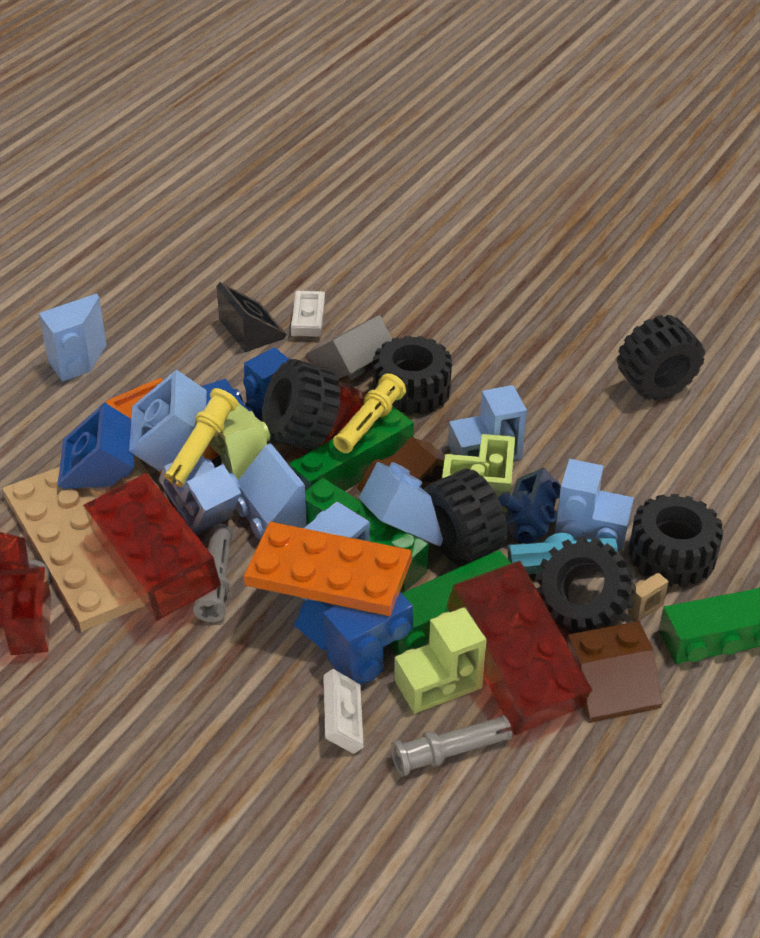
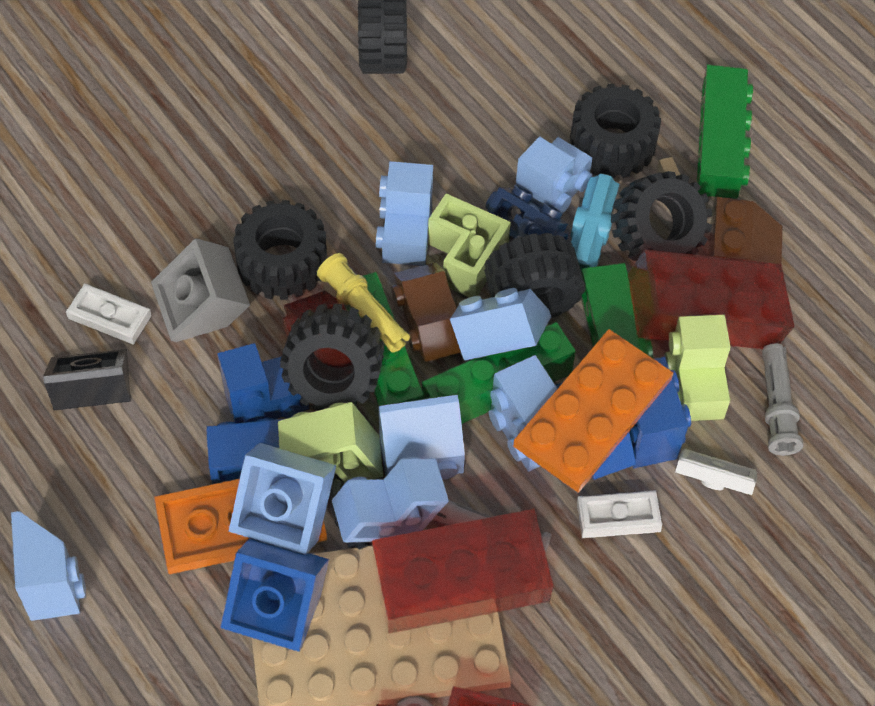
camera: 70 degrees left, 15 degrees up
(208, 424) = (337, 452): light yellow pin -> none
(269, 654) = (619, 514): none -> white plate

